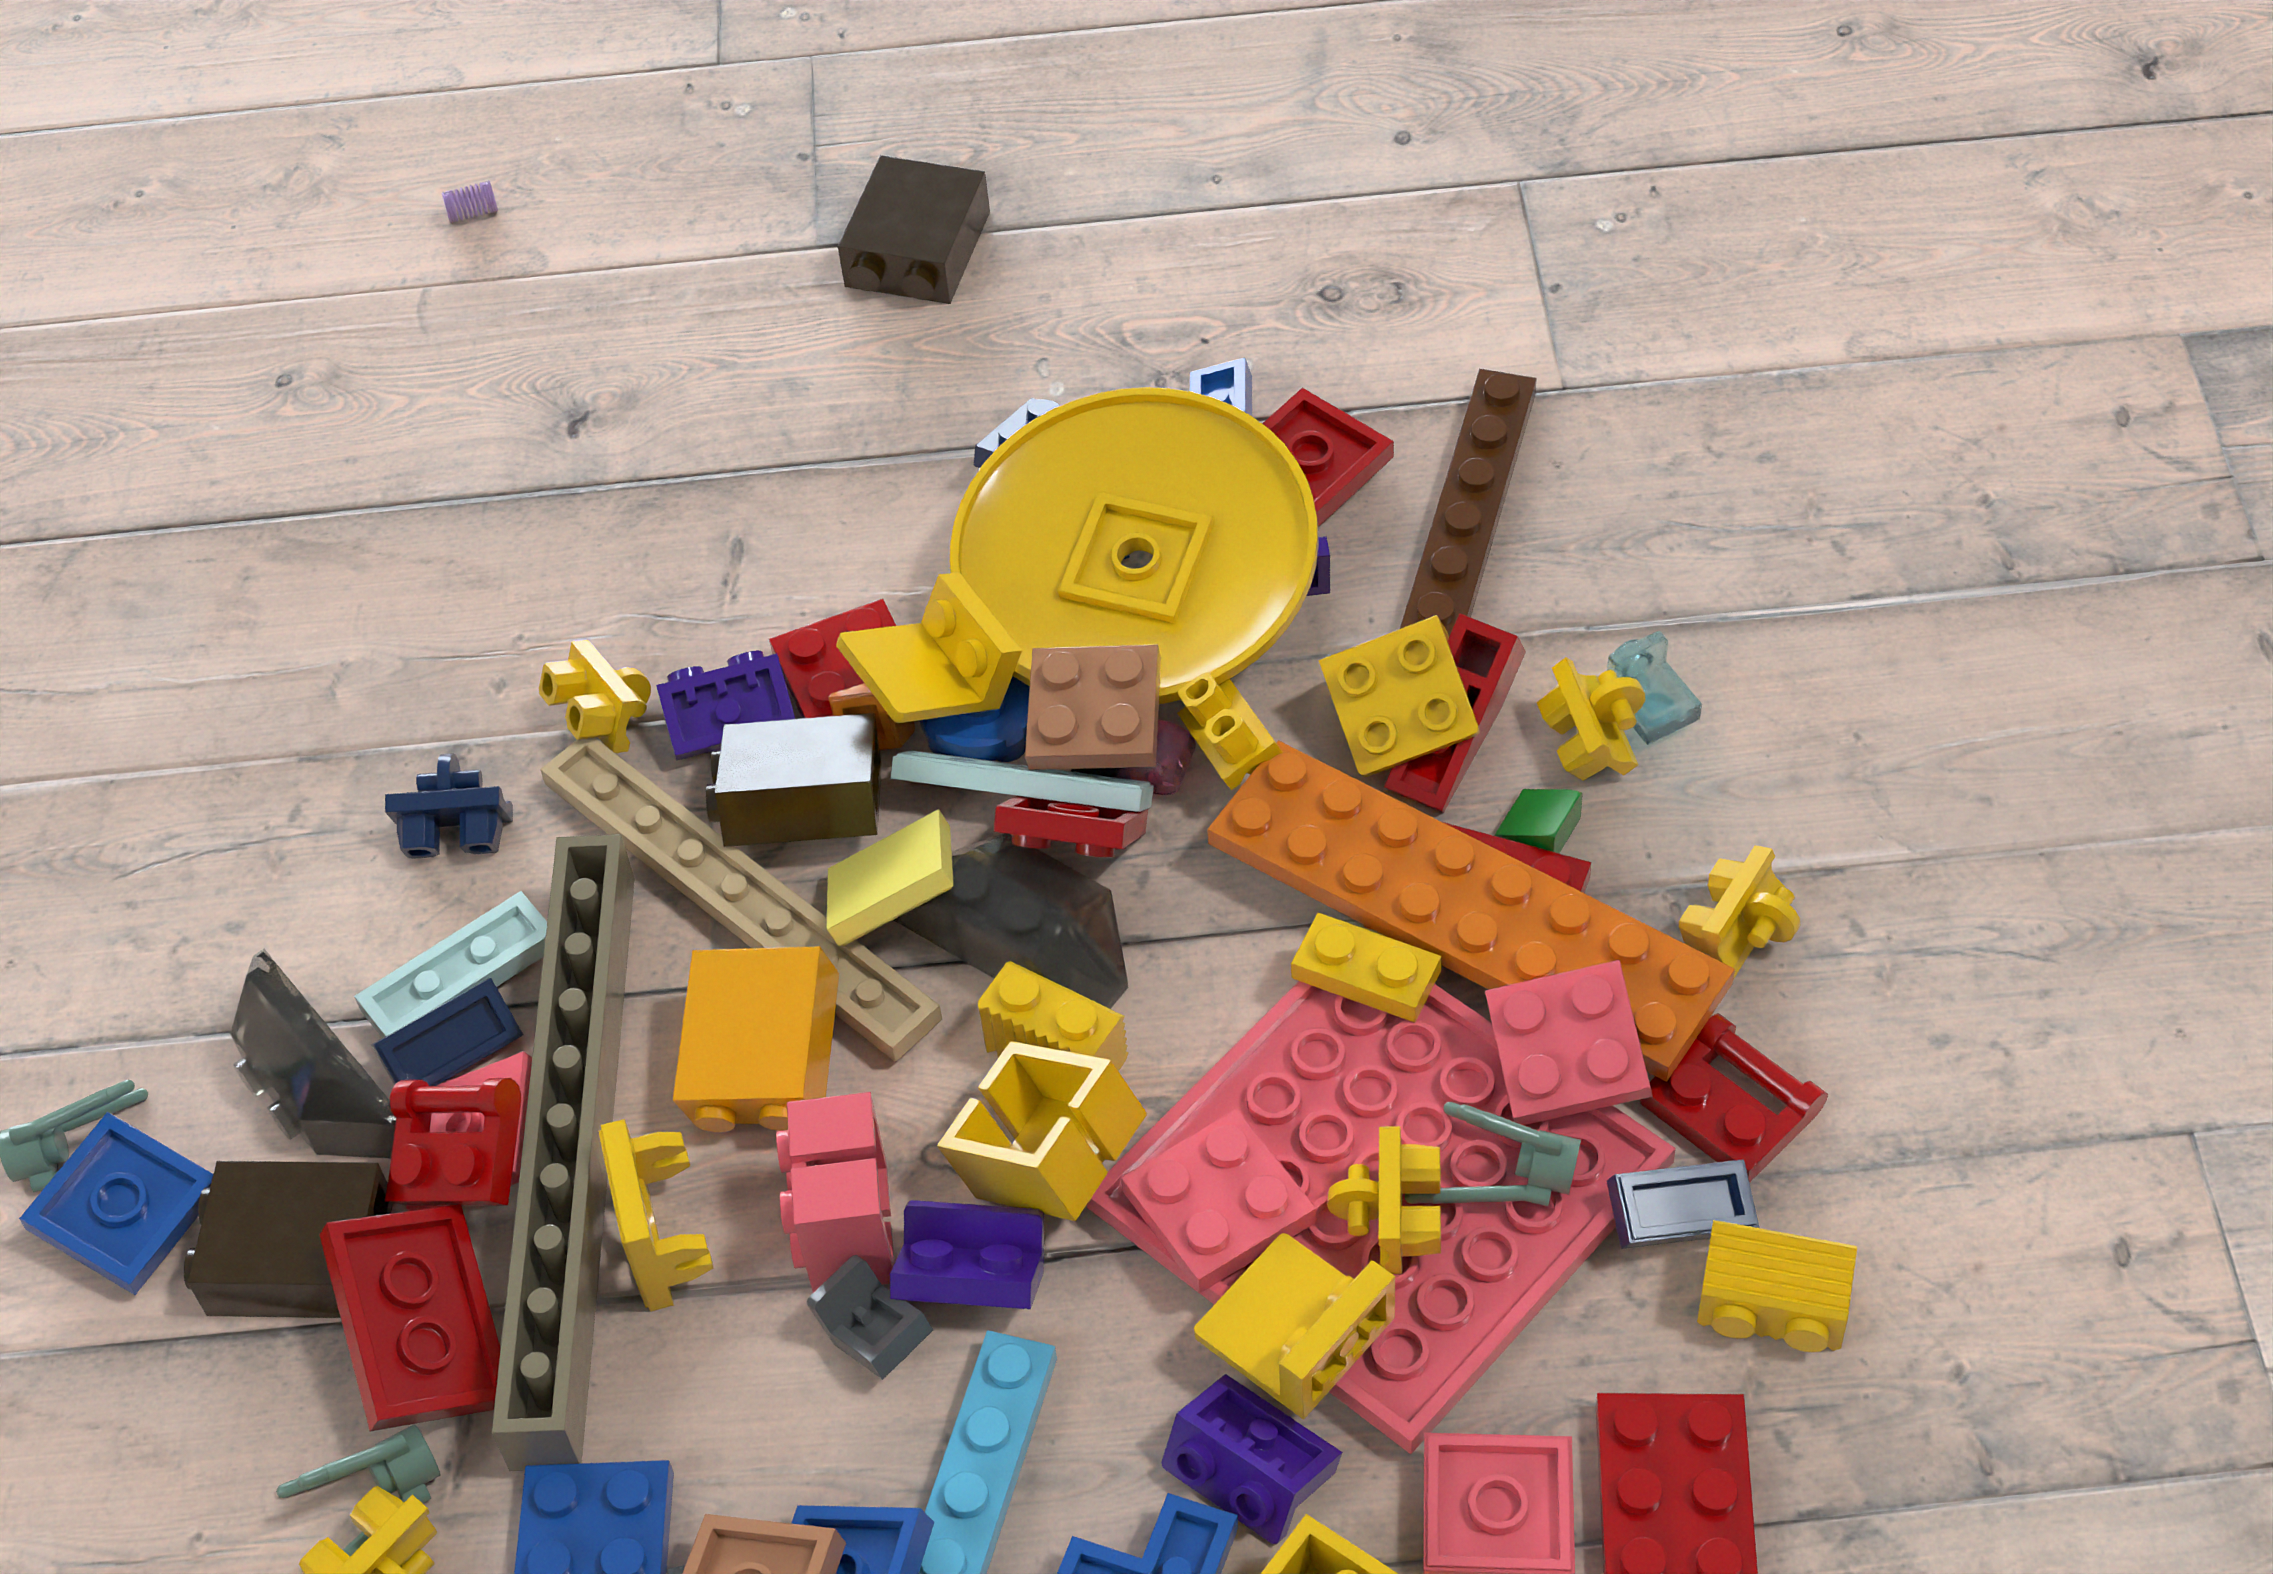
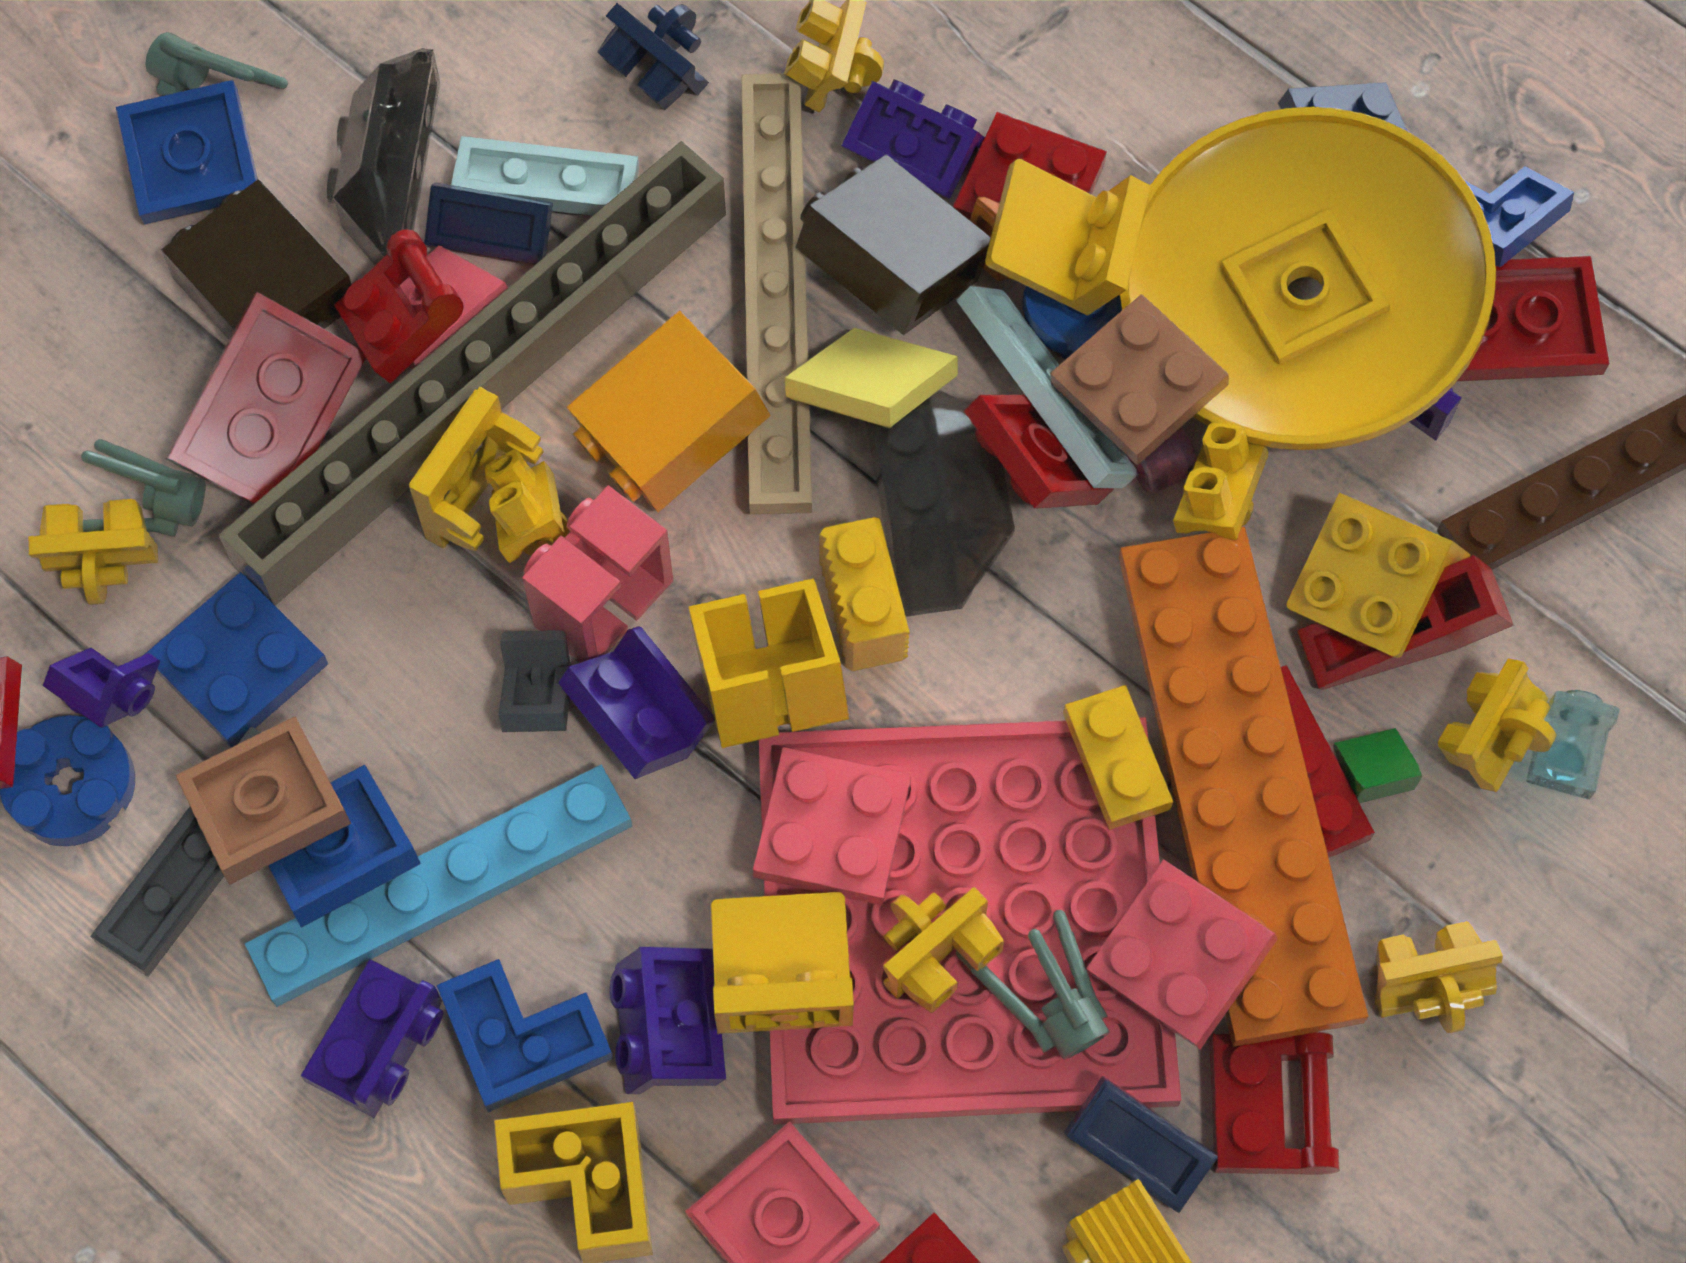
camera: 40 degrees right, 15 degrees up
(718, 1201) = (524, 505): none -> yellow hips

